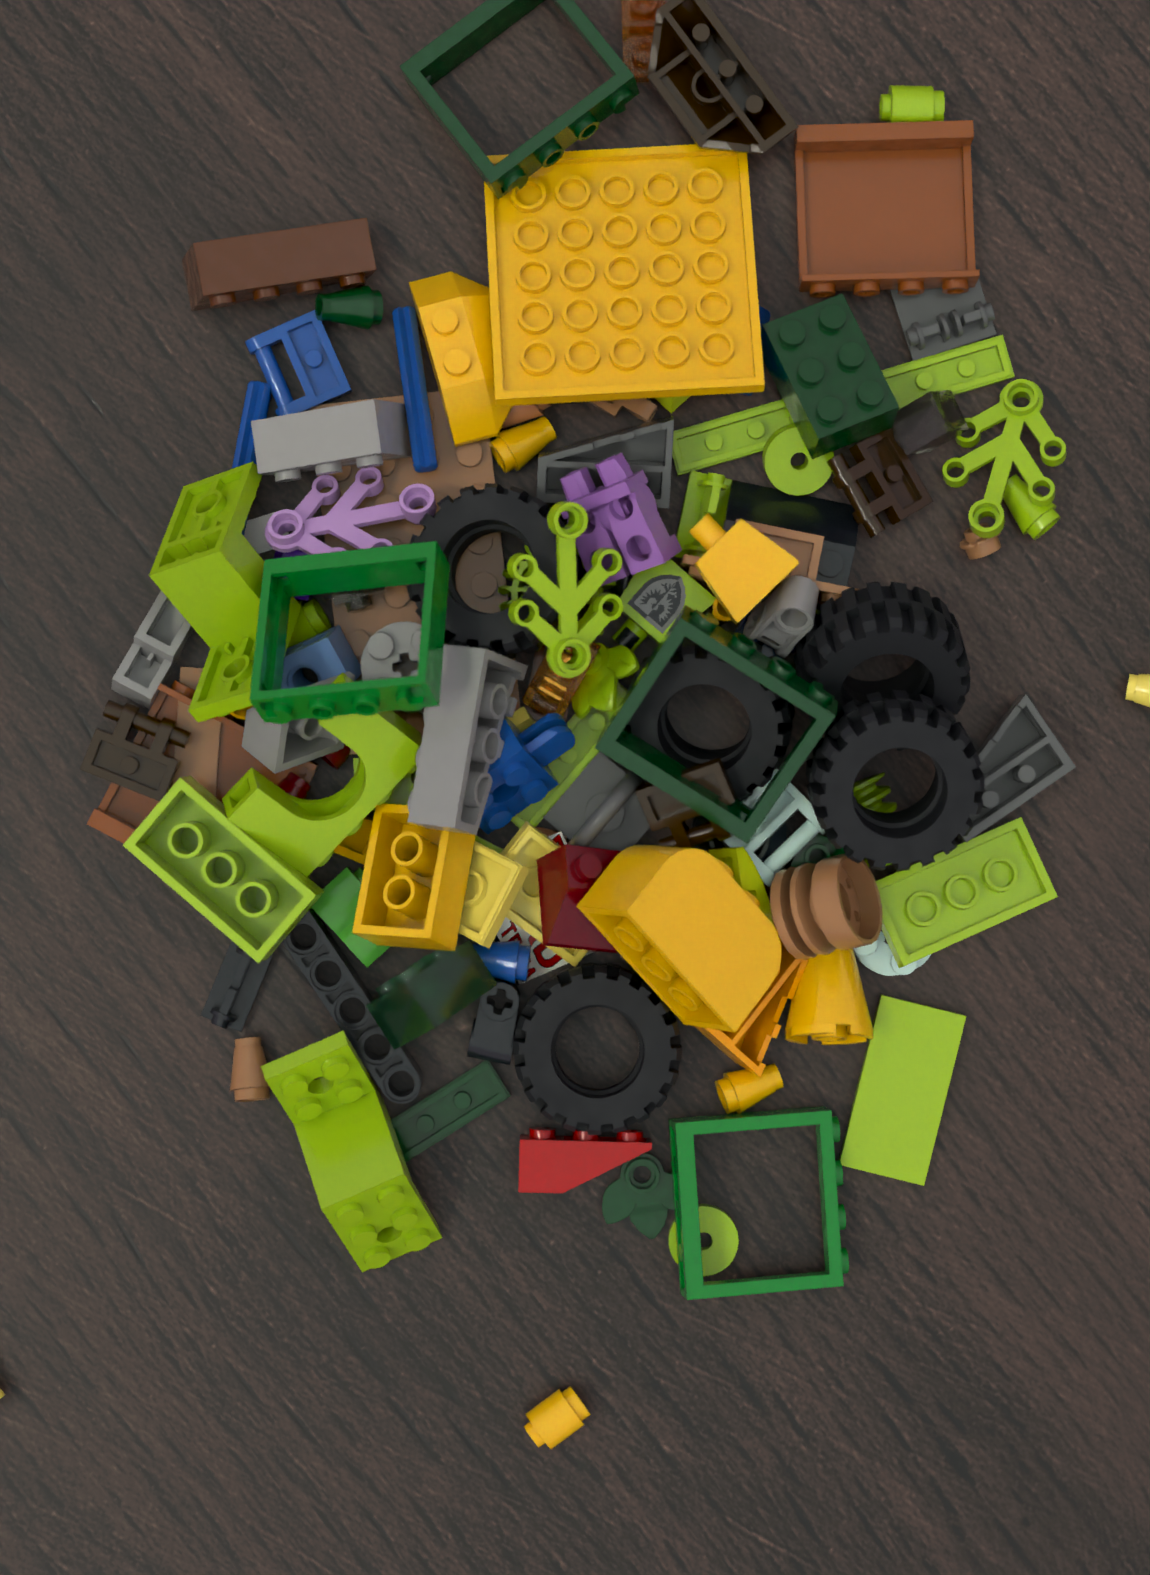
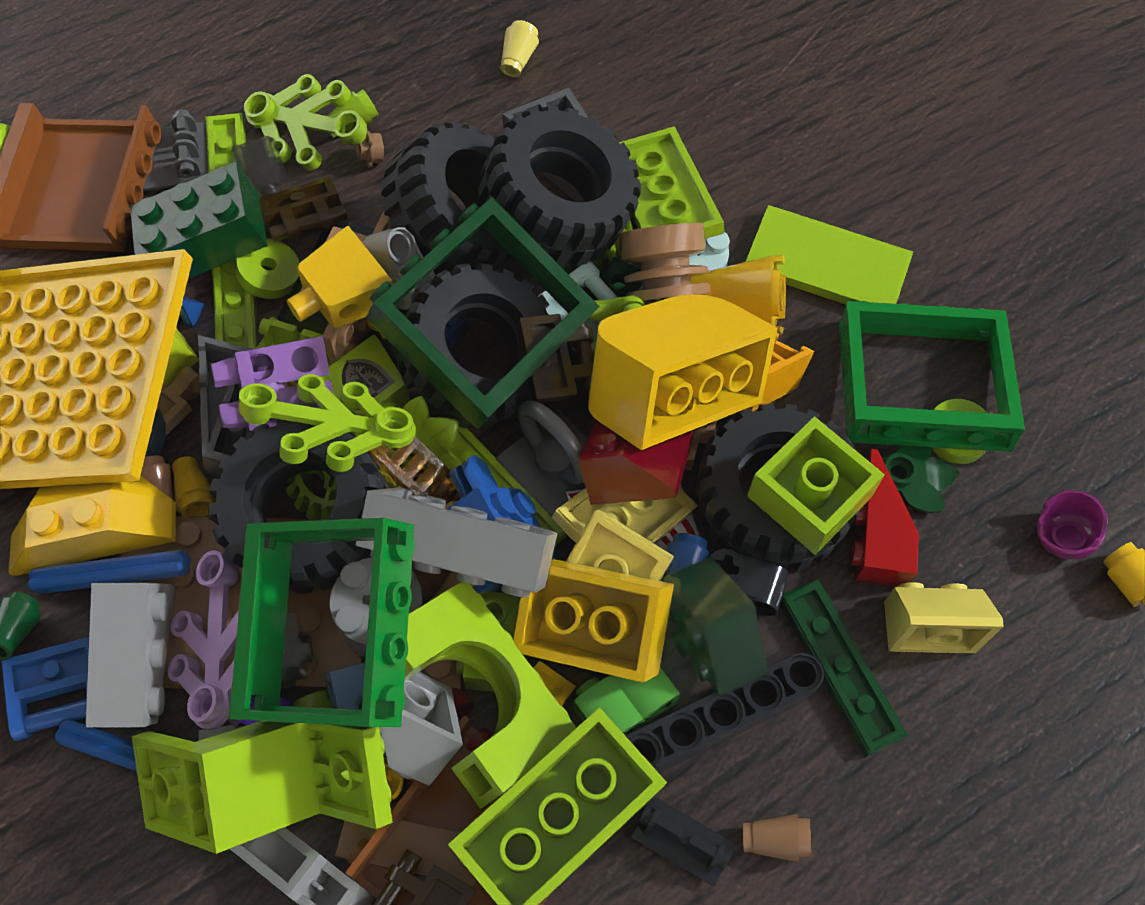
camera: 80 degrees left, 25 degrees down
(352, 1152) = (870, 728): lime bracket -> none
(480, 1215) = (940, 619): none -> light yellow slope
(569, 1081) = (814, 485): none -> lime brick
(598, 1351) = (1072, 524): none -> magenta hair
(743, 1089) = (822, 377): yellow cone -> none
(766, 862) = (614, 306): none -> lime arm

